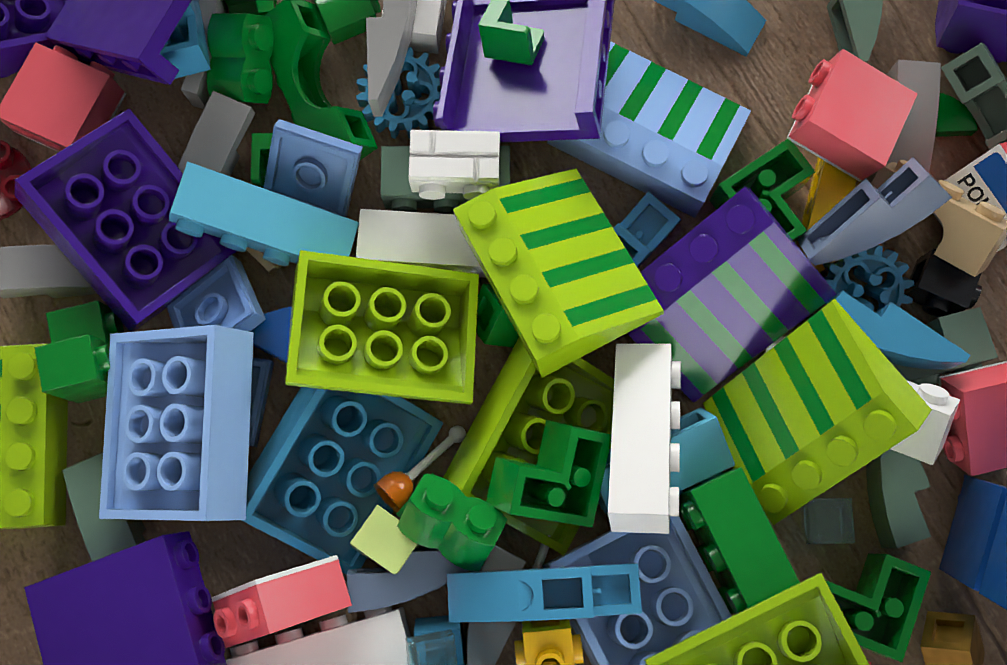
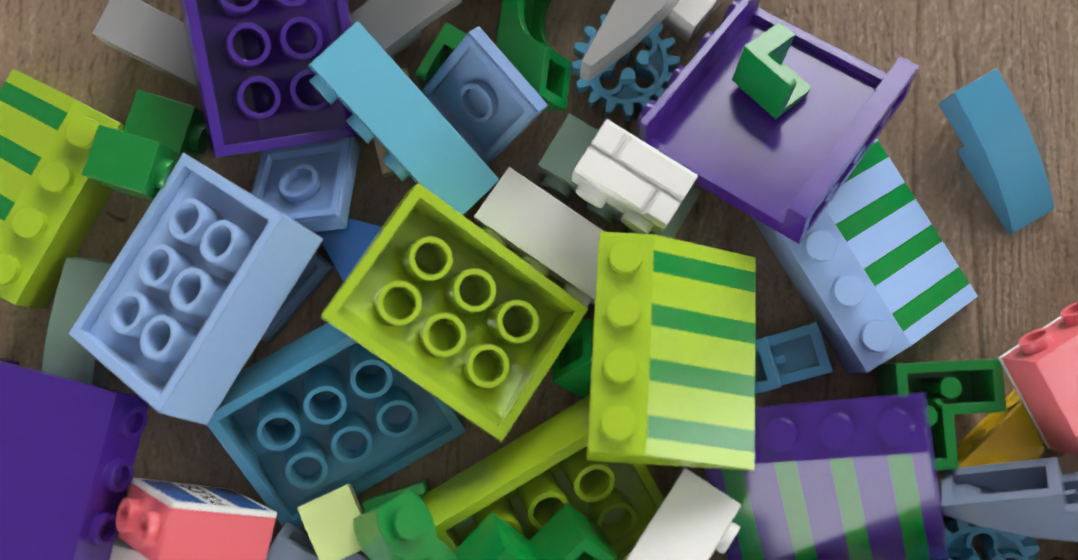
camera: 30 degrees right, 5 degrees up
(397, 487) = (381, 473): hinge -> none

